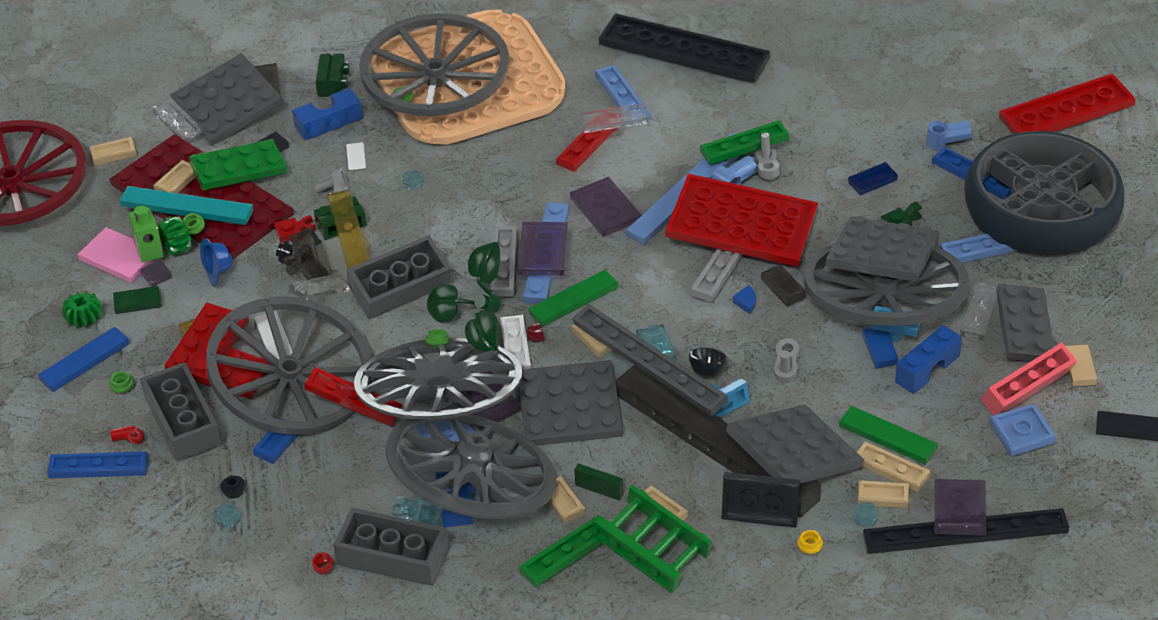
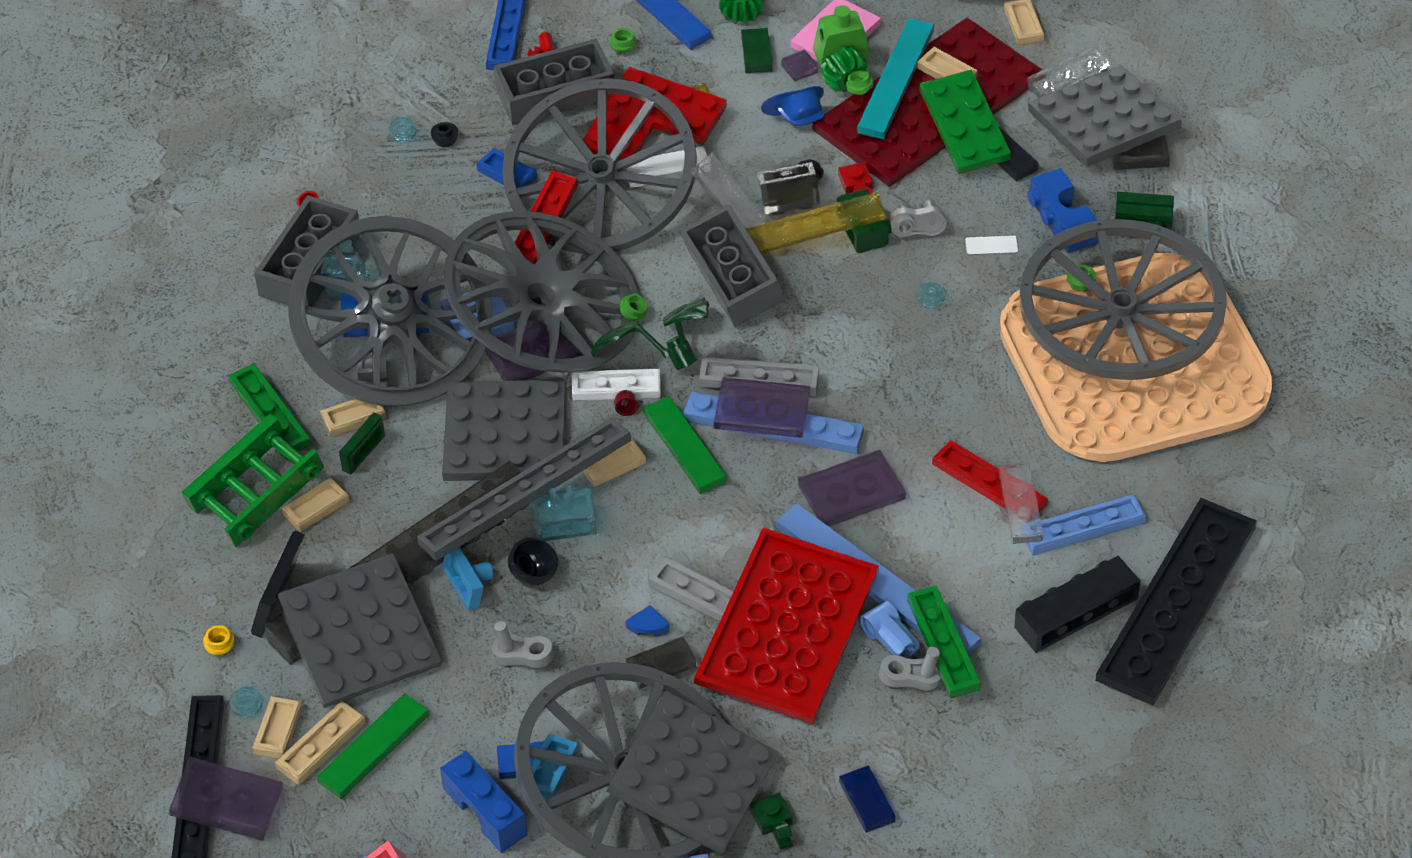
camera: 95 degrees right, 5 degrees up
(697, 89) = (1076, 603): none -> black brick

